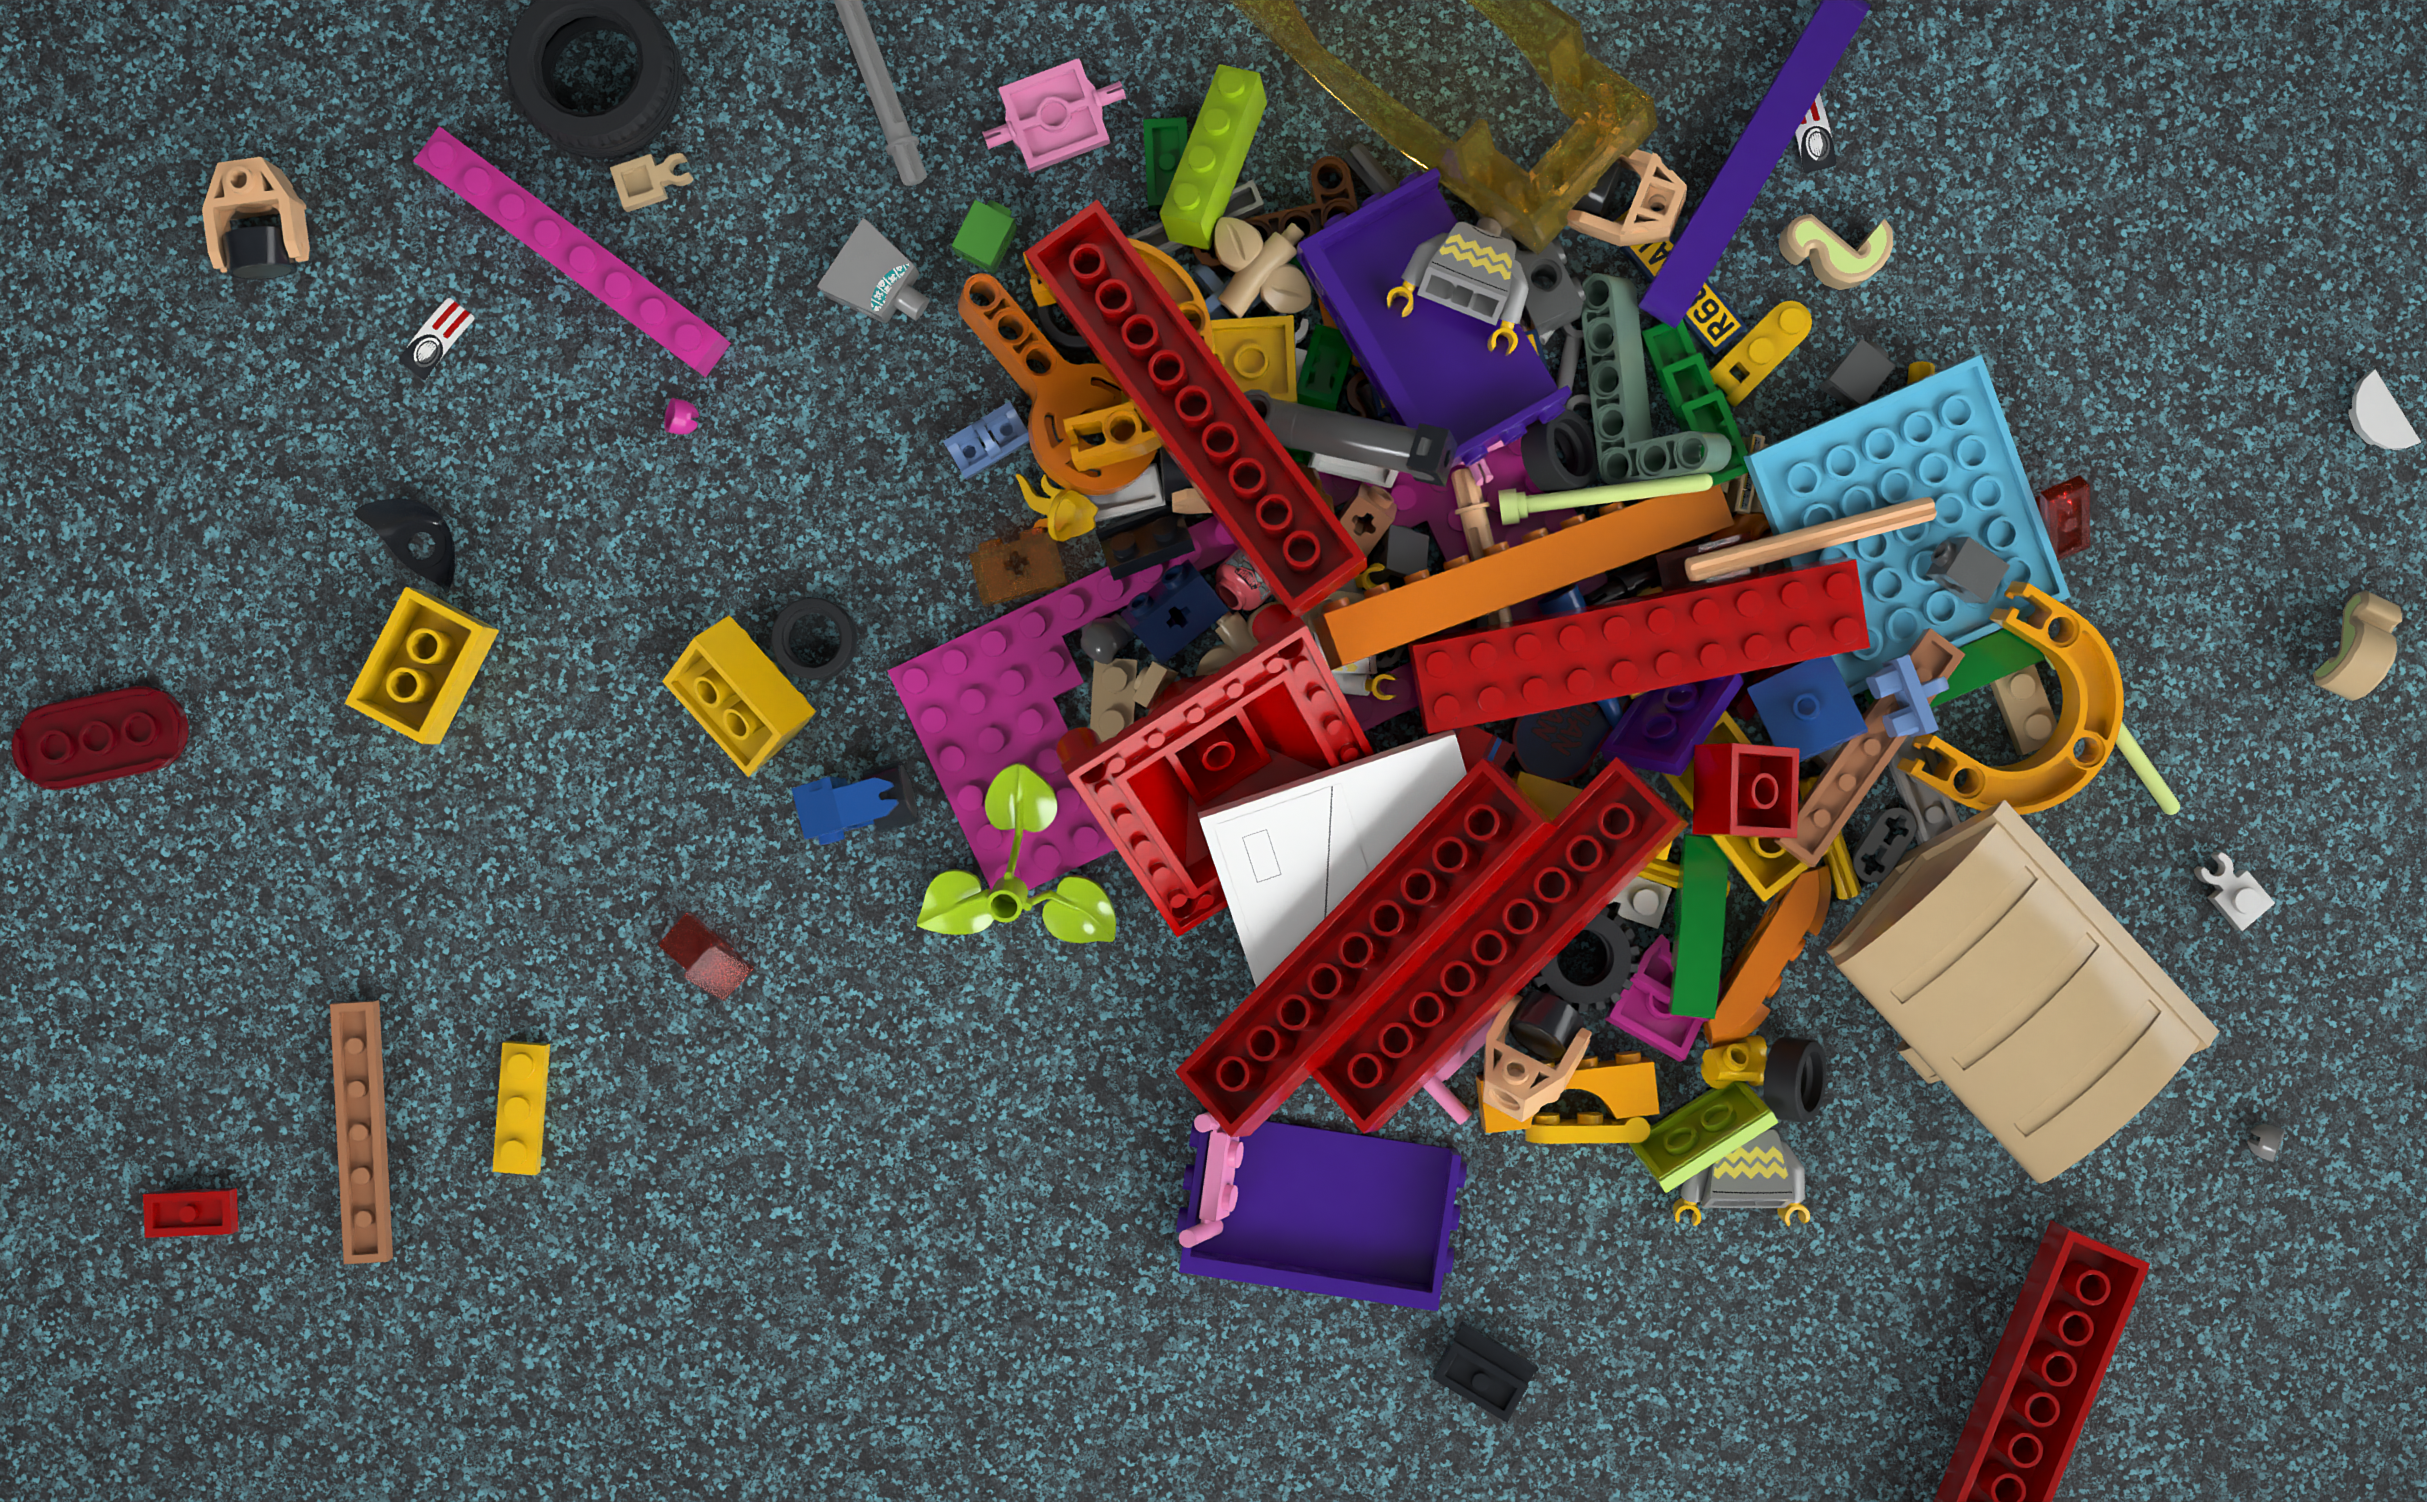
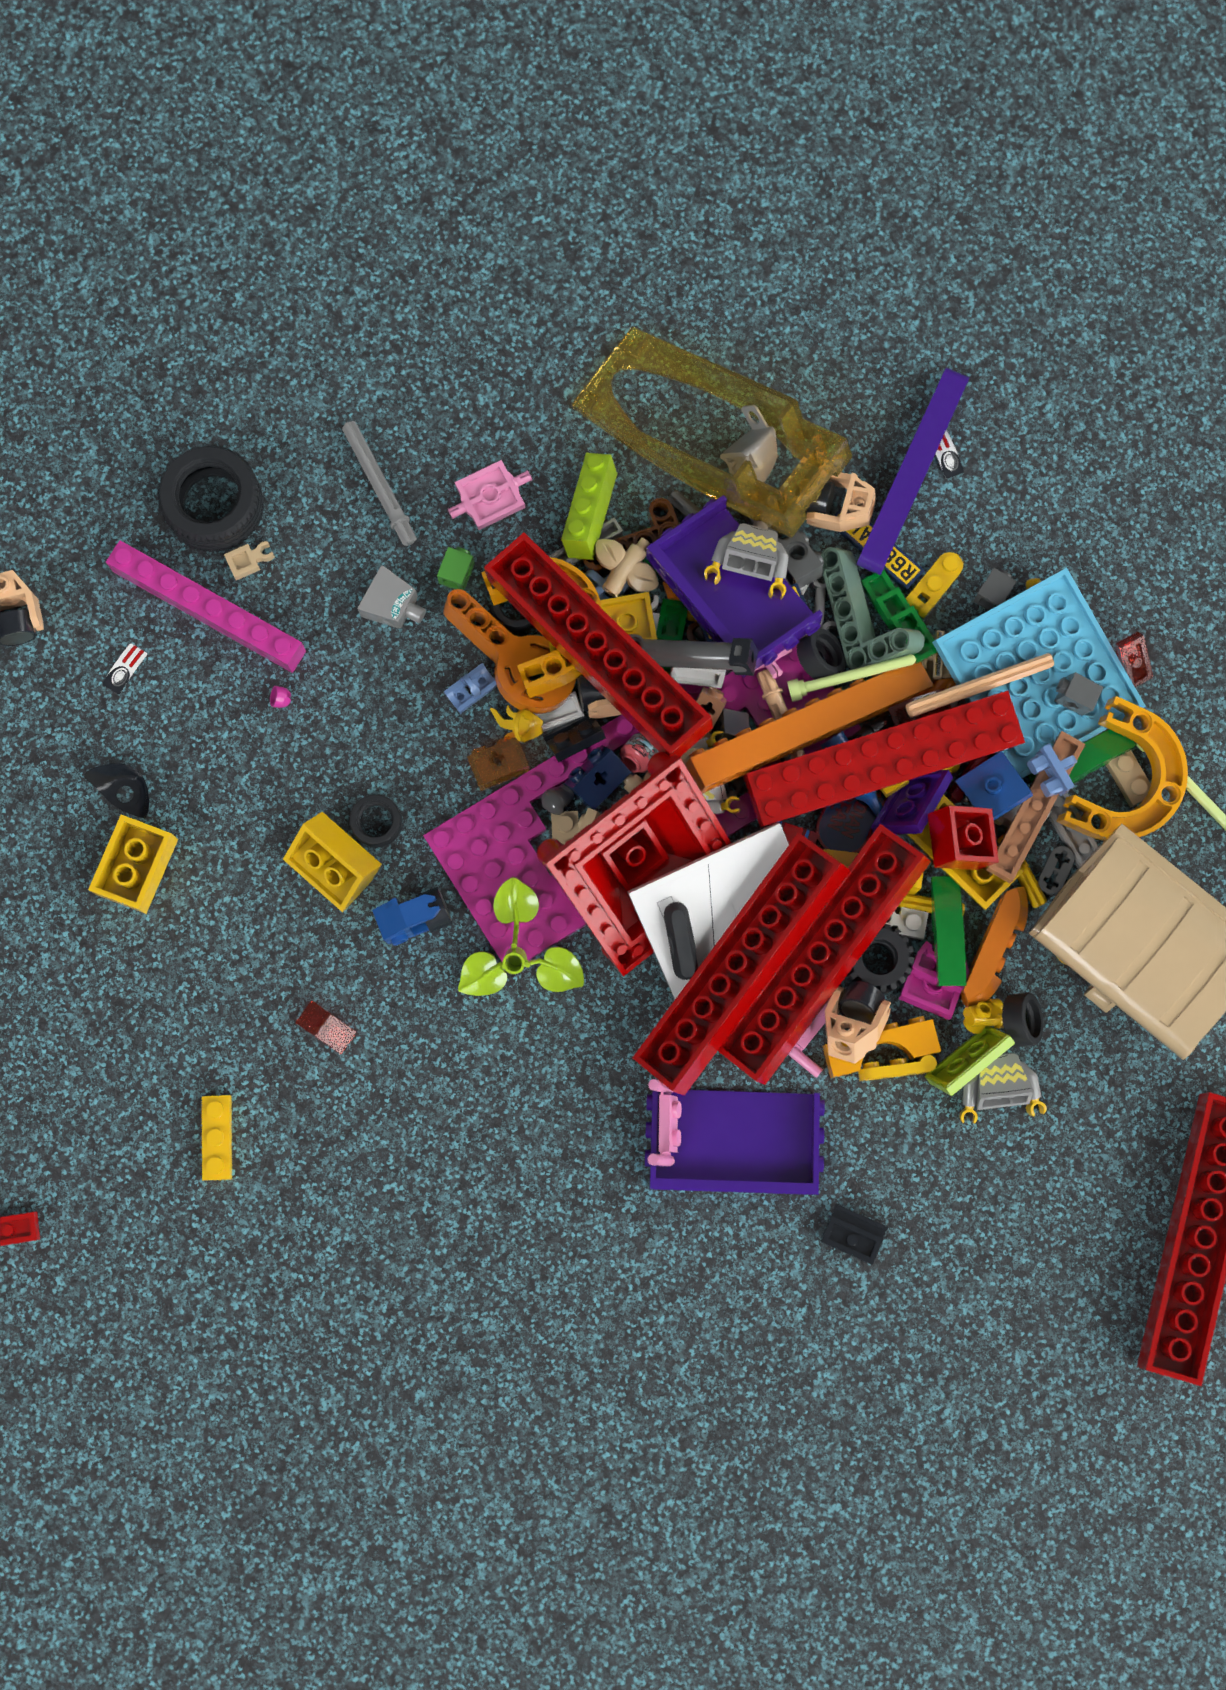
camera: 10 degrees left, 10 degrees down
(361, 1132) = (115, 1164): nougat plate -> none
(1164, 146) = (558, 506): green plate -> none
(1273, 901) = (680, 940): none -> black piece
(1495, 89) = (755, 446): none -> light grey piece
(1831, 257) = (969, 524): tan animal -> none

